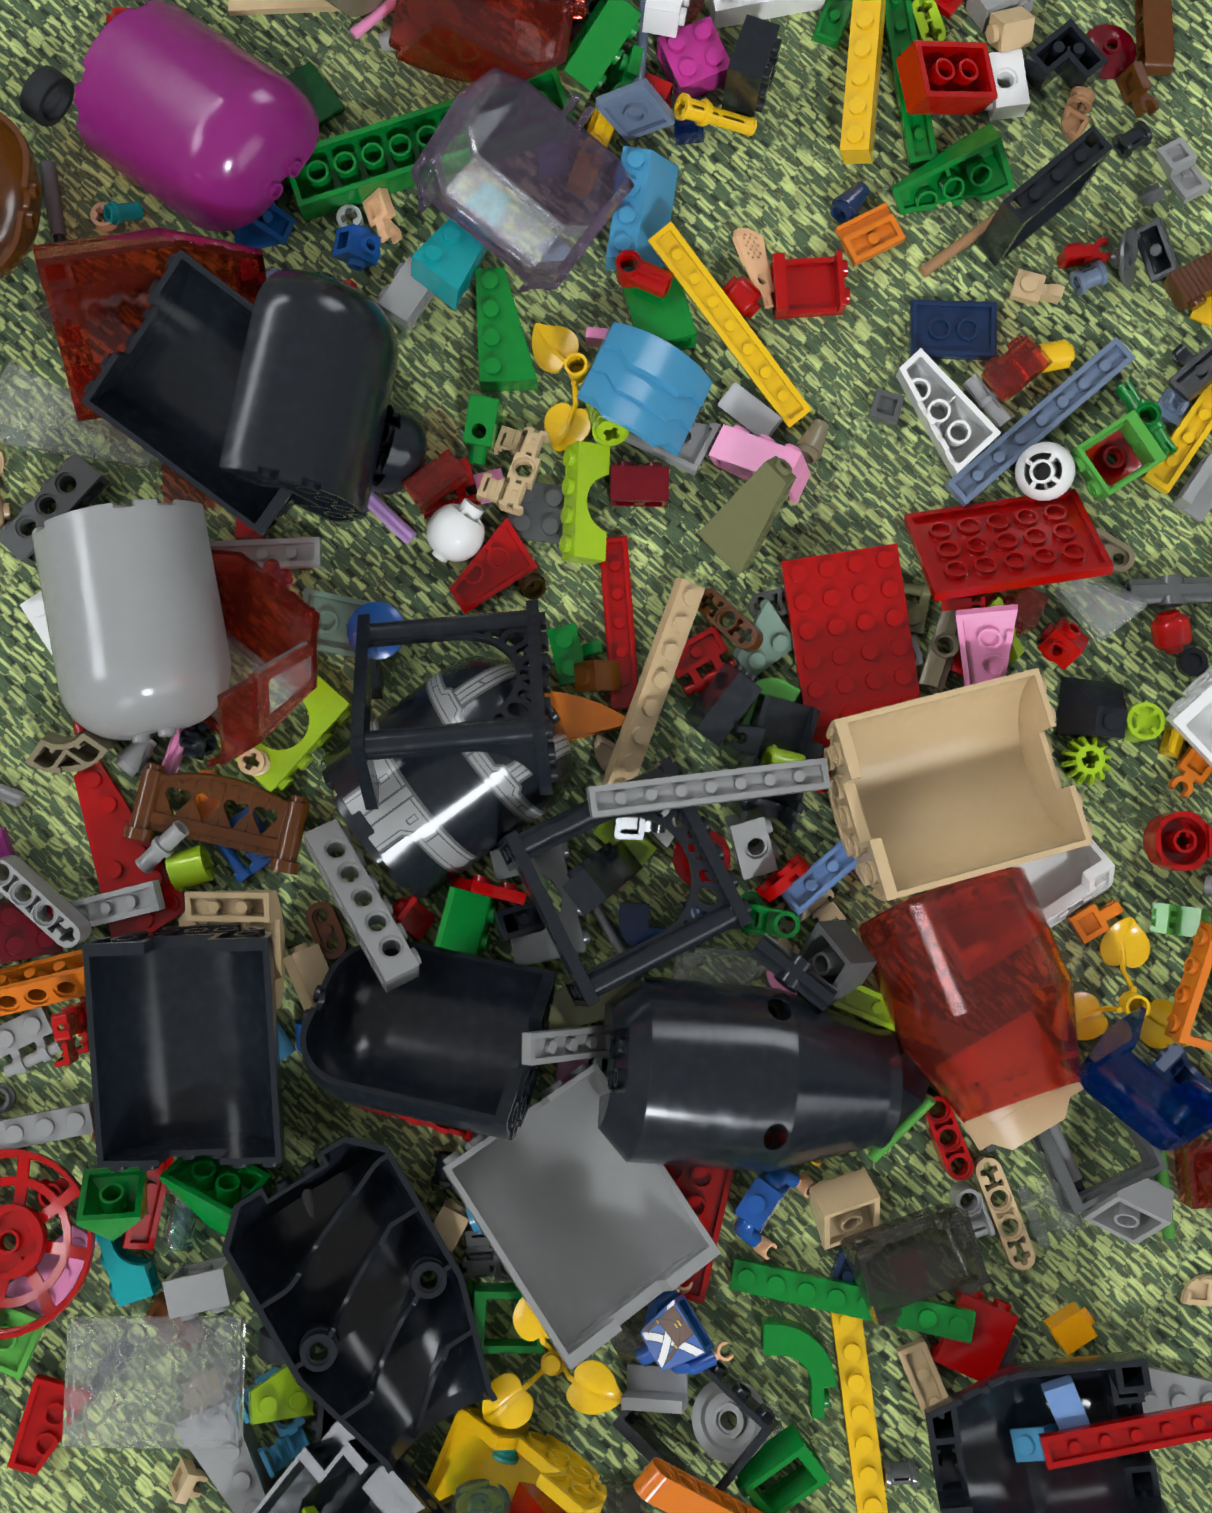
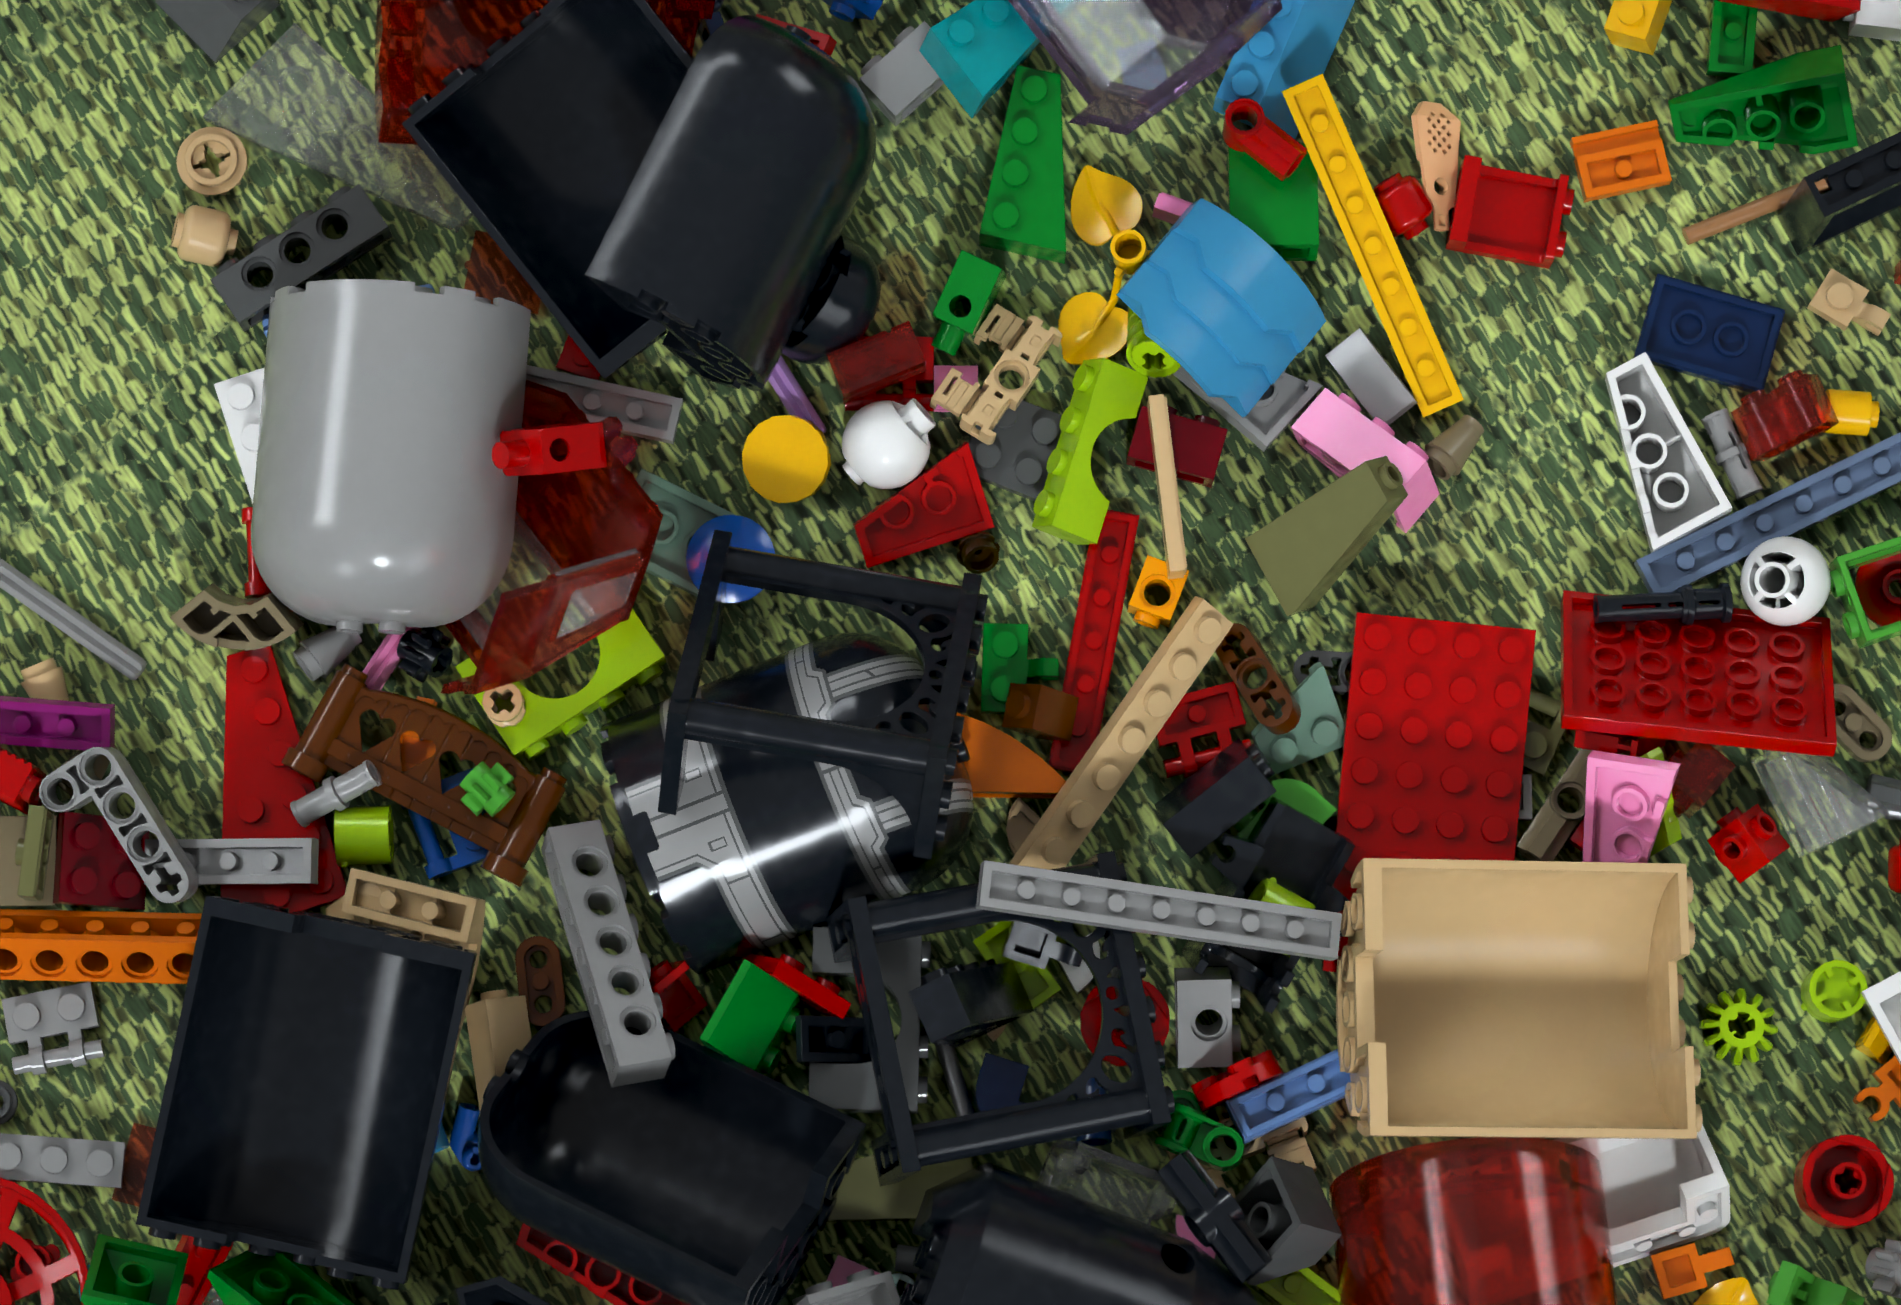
camera: 15 degrees right, 5 degrees down
(74, 1022) = (148, 1012): red piece -> none
(228, 594) = (532, 449): none -> red torso
(257, 819) = (487, 789): none -> bright green gear
(395, 558) = (786, 459): none -> yellow tile
(565, 1045) = (853, 1229): light grey plate -> none
(640, 512) = (1167, 486): none -> tan tile
(655, 570) = (1155, 573): none -> light orange brick
(849, 202) = (1601, 106): dark blue cone -> none
(886, 407) = (1577, 424): dark grey plate -> none
(986, 504) = (1687, 607): none -> black pin
(1091, 709) = (1766, 953): black slope -> none

